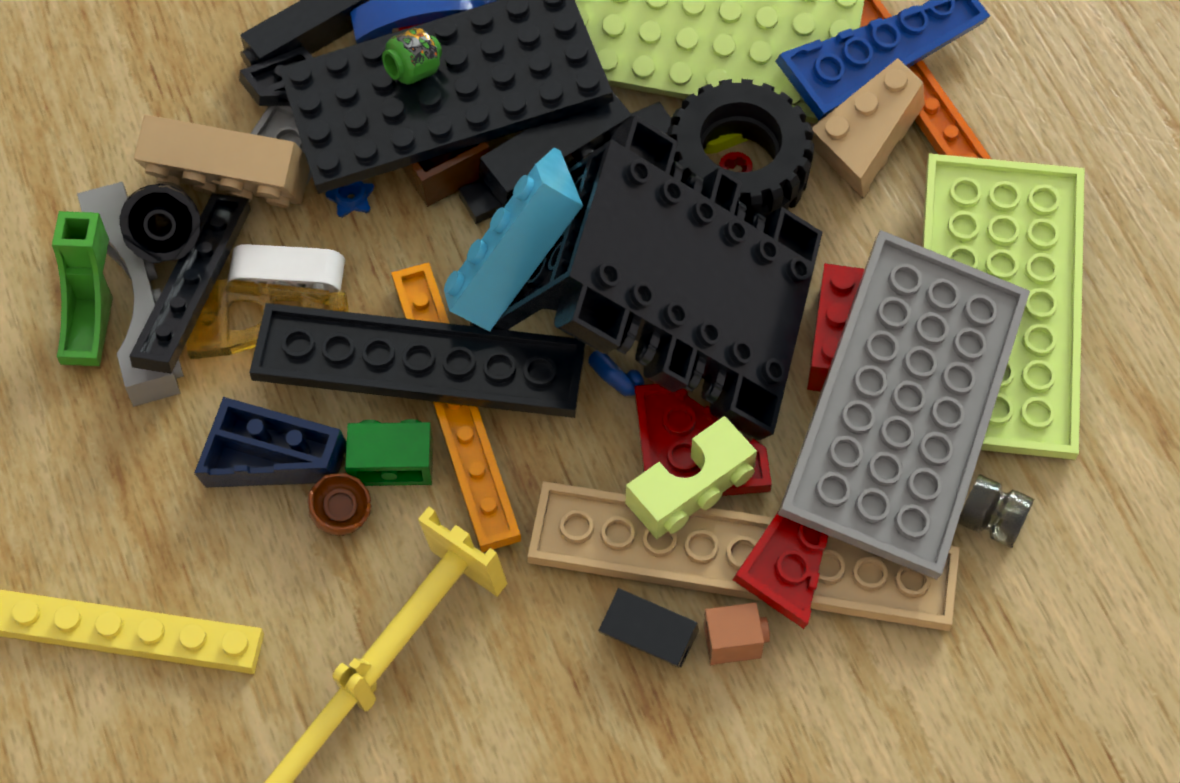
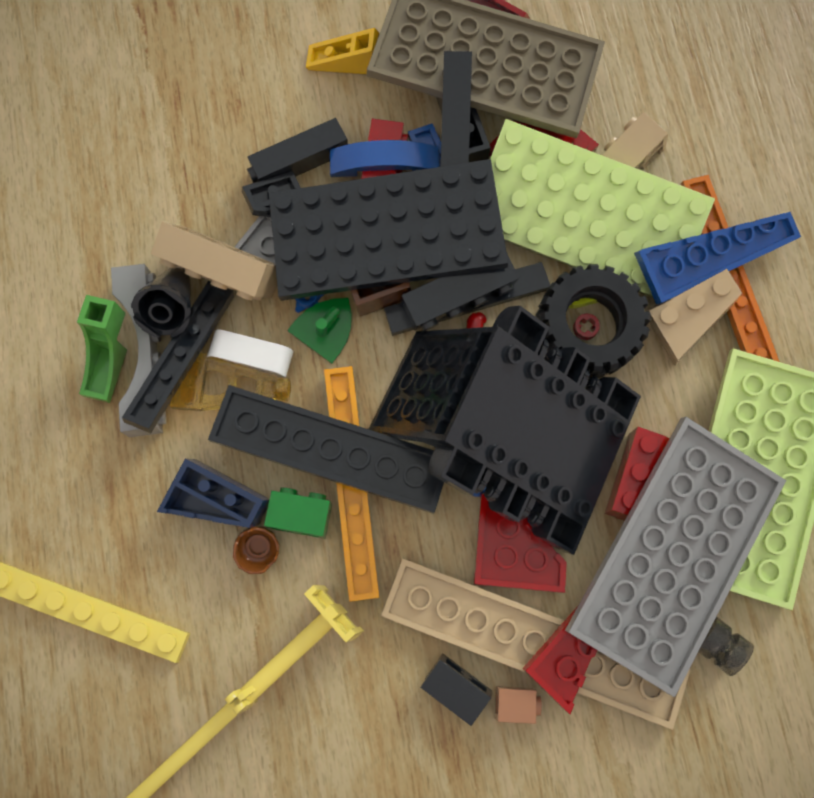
camera: 10 degrees right, 15 degrees up
(381, 227) = (324, 327): none -> green shield
(412, 56) = (364, 208): bright green head -> none
(514, 243) = (414, 378): medium azure slope -> none
(667, 501) = (533, 573): yellowish green arch -> none

